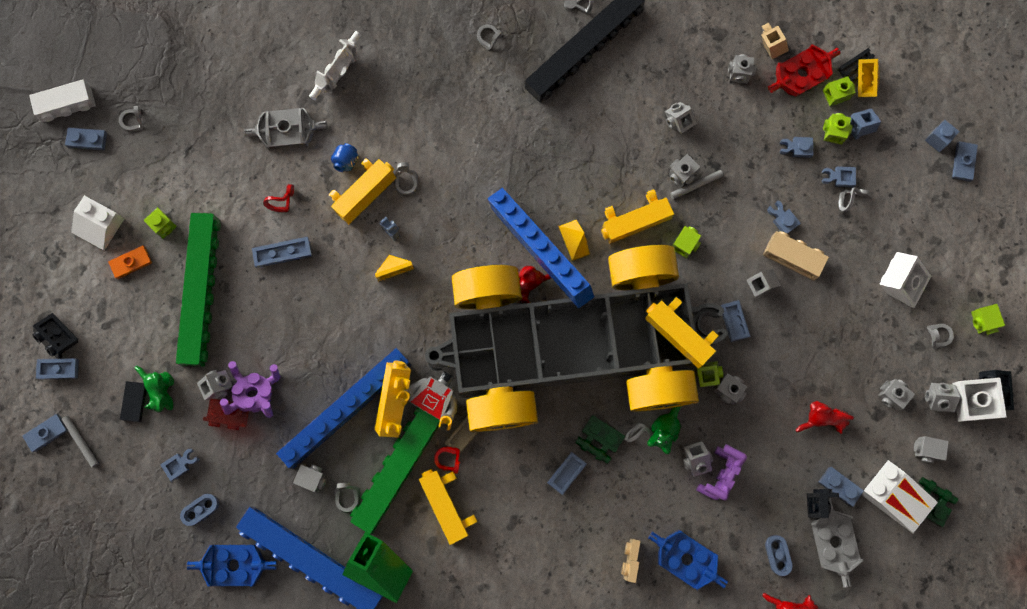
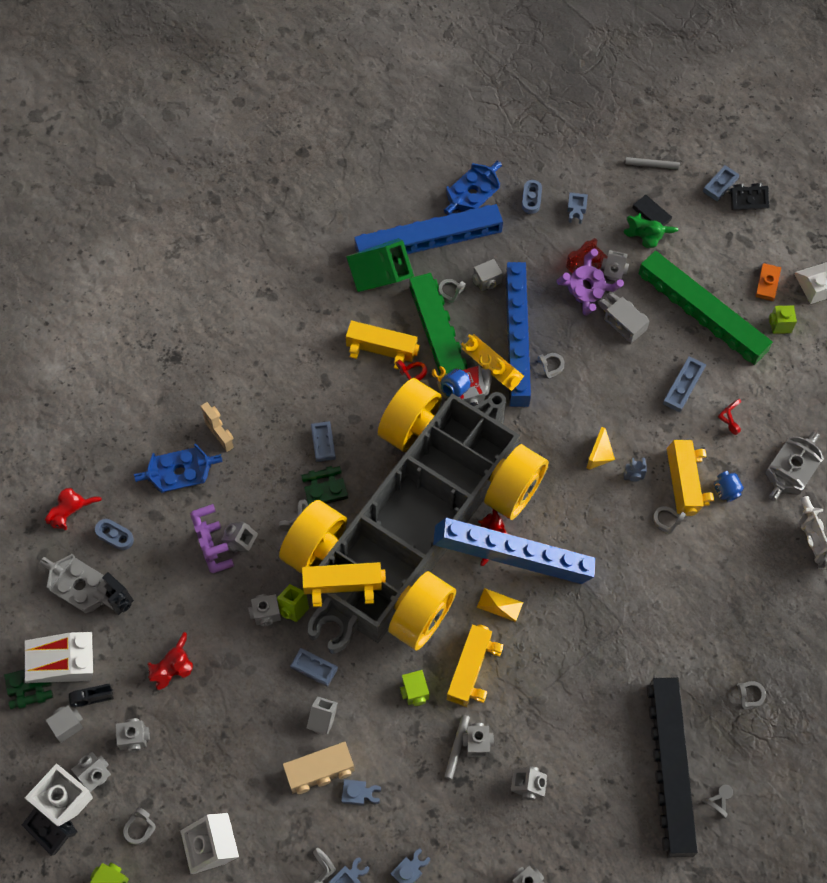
camera: 130 degrees right, 15 degrees down
(45, 433) = (678, 147): sand blue plate -> none
(258, 341) = (624, 317): none -> light grey hinge
(355, 367) = (542, 360): none -> light grey piece
(444, 400) = (455, 382): none -> blue head
(666, 430) = (279, 524): green animal -> none
(840, 484) = (112, 628): sand blue plate -> none
(897, 450) = (90, 695): none -> black piece

